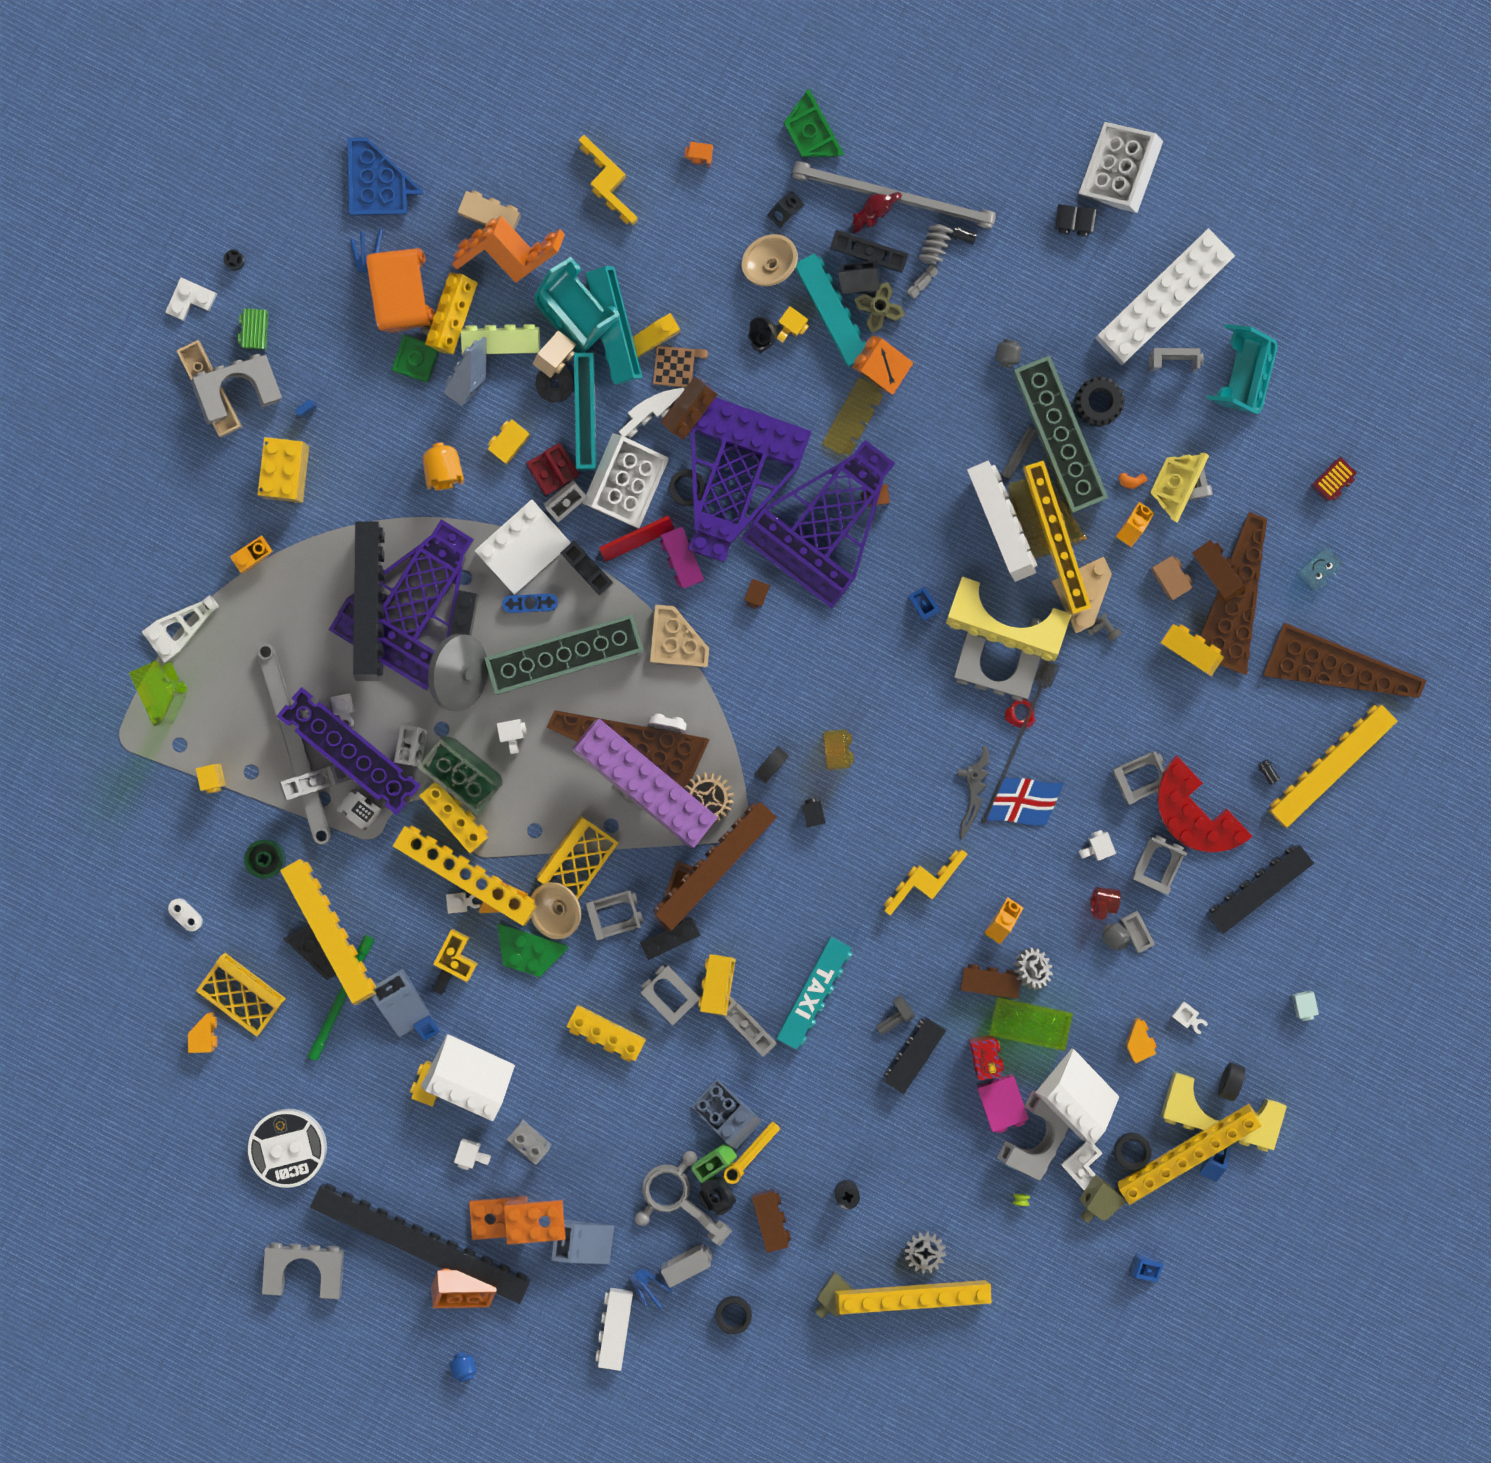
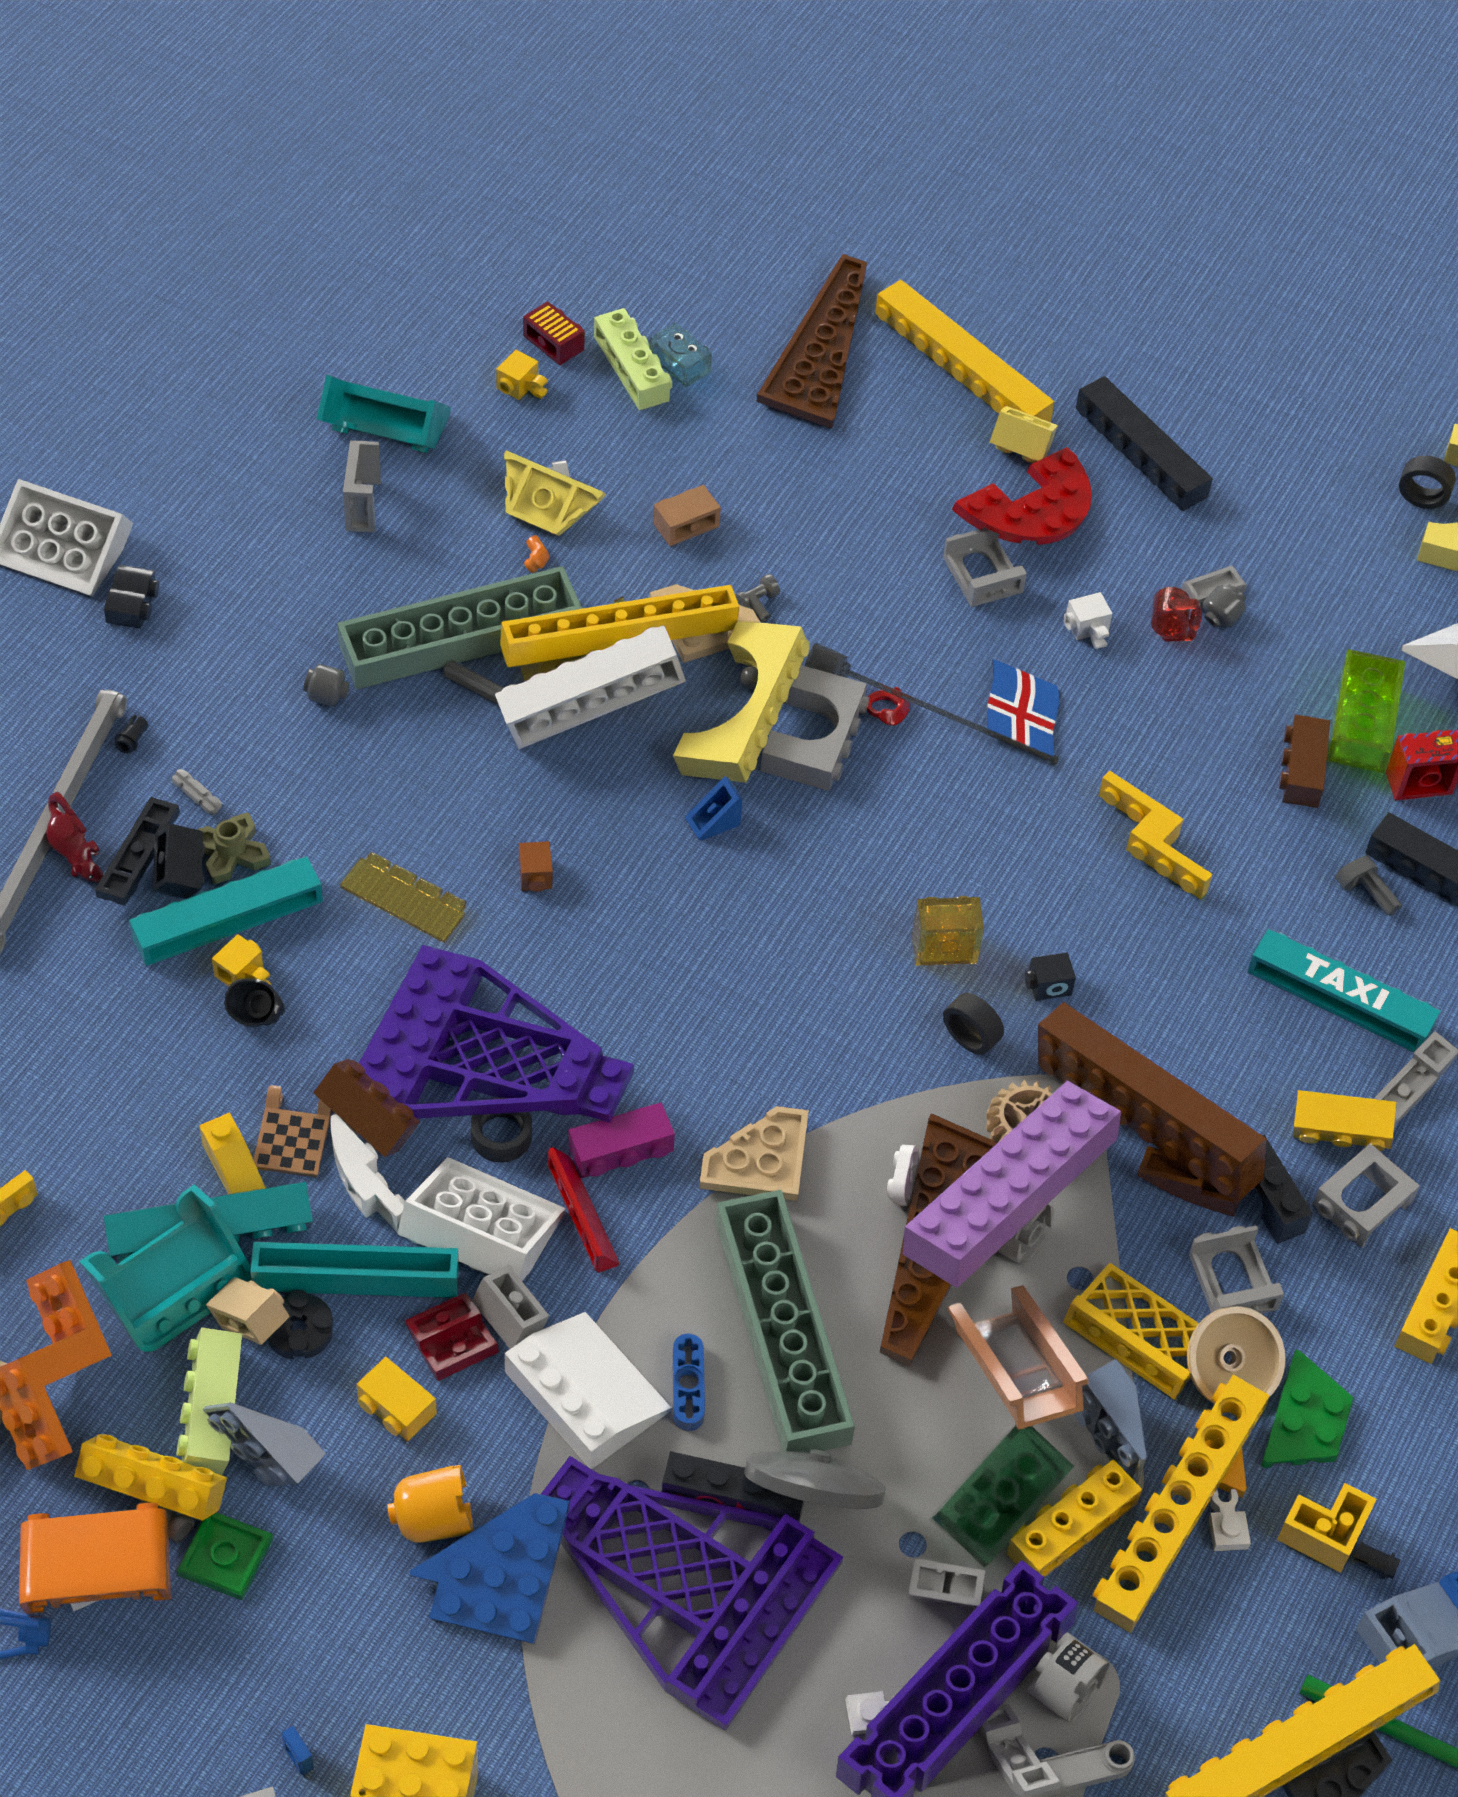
camera: 90 degrees left, 35 degrees down
(367, 601) = (679, 1625): black brick -> none
(407, 505) = (500, 1571): none -> blue wing
(510, 732) = (920, 1420): white brick -> none
(516, 839) = (1114, 1417): none -> sand blue slope
(539, 786) = (1024, 1361): none -> nougat piece
(587, 568) = (614, 1294): black arch -> none
(756, 594) = (686, 1036): reddish brown brick -> none
(766, 253) = (117, 982): tan dish -> none
(787, 207) = (43, 960): black bracket -> none
(800, 557) = (620, 980): dark purple wing -> none
(882, 364) = (325, 837): orange brick -> none
(935, 244) = (139, 768): light grey piece -> none
(974, 776) = (984, 769): dark grey piece -> none
(1003, 920) = (1210, 738): light orange slope -> none
(1033, 968) = (1281, 702): light grey gear -> none
(1111, 390) = (408, 563): black tyre -> none
(1135, 524) = (605, 550): light orange slope -> none
(1138, 1042) = (1378, 589): light orange slope -> none
(1165, 296) = (266, 499): white brick -> none
(1177, 856) = (1095, 535): light grey panel -> none
(1187, 1016) = (1336, 534): white plate -> none
(1193, 649) = (794, 488): yellow brick -> none
(1220, 570) = (678, 453): reddish brown brick -> none
(1231, 622) = (736, 451): reddish brown wing -> none
(1257, 805) = (1023, 434): none -> light yellow brick
(1268, 771) = (967, 428): black pin -> none
(1290, 457) = (519, 375): none -> yellow brick
(1305, 1005) = (1306, 404): light aqua brick -> none
(1313, 534) = (632, 359): none -> yellowish green brick

